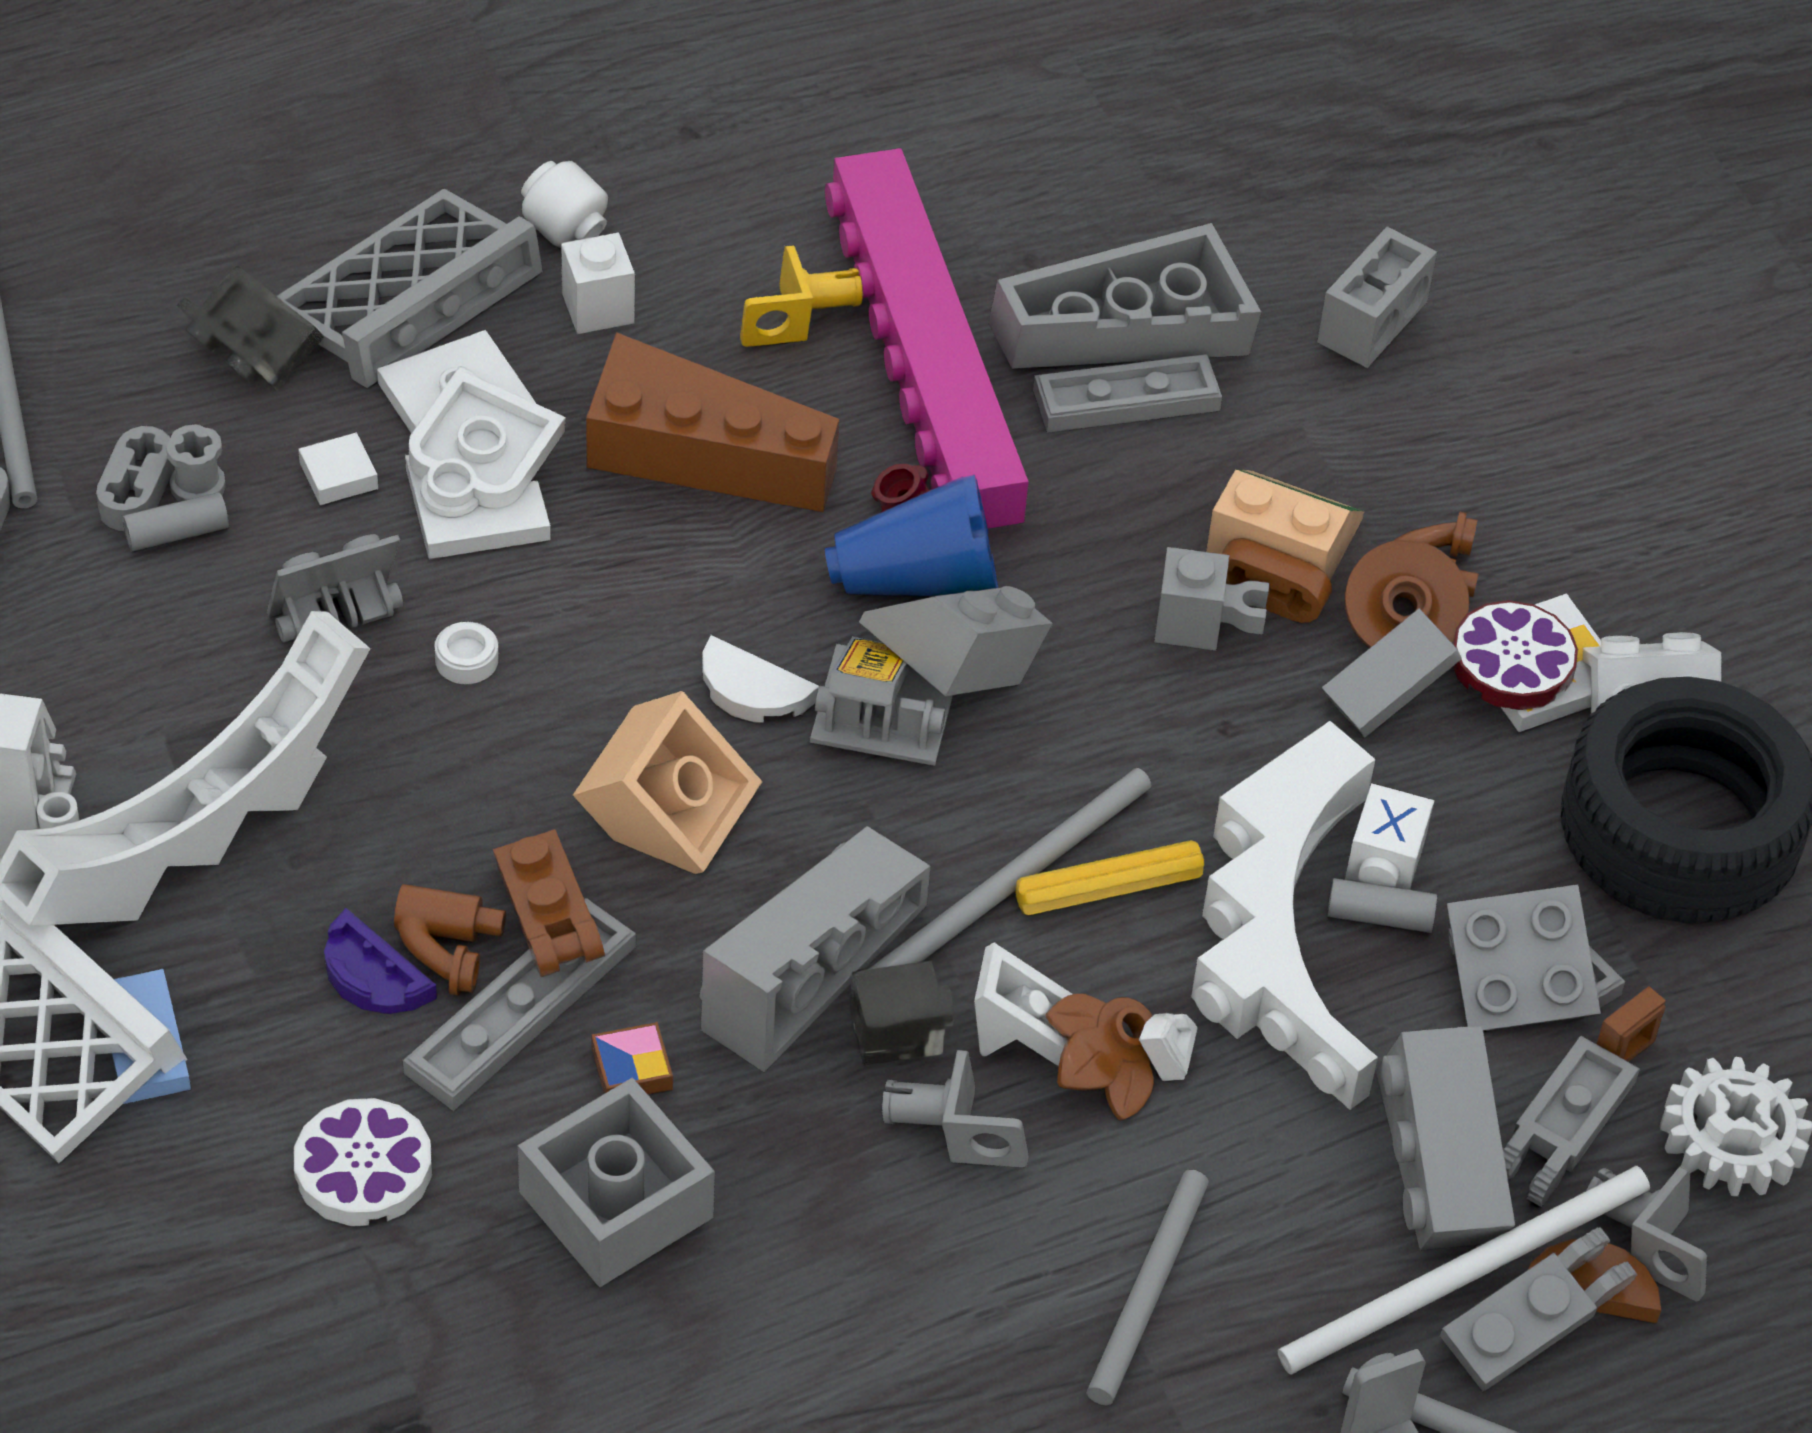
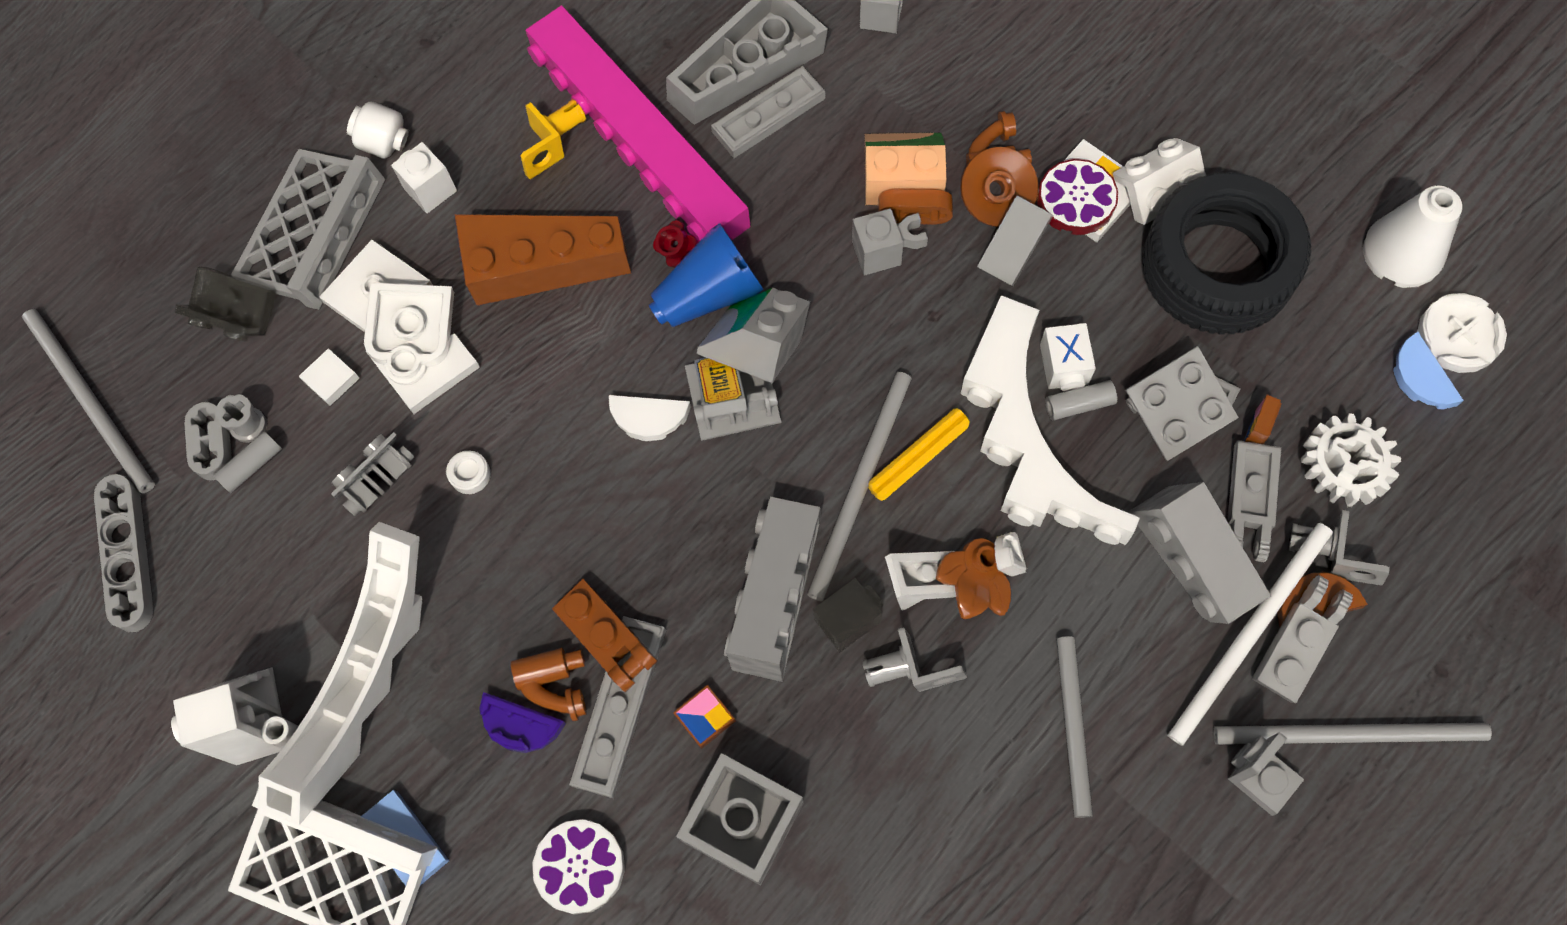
camera: 15 degrees left, 20 degrees up
(668, 784) = (634, 514): light nougat slope -> none

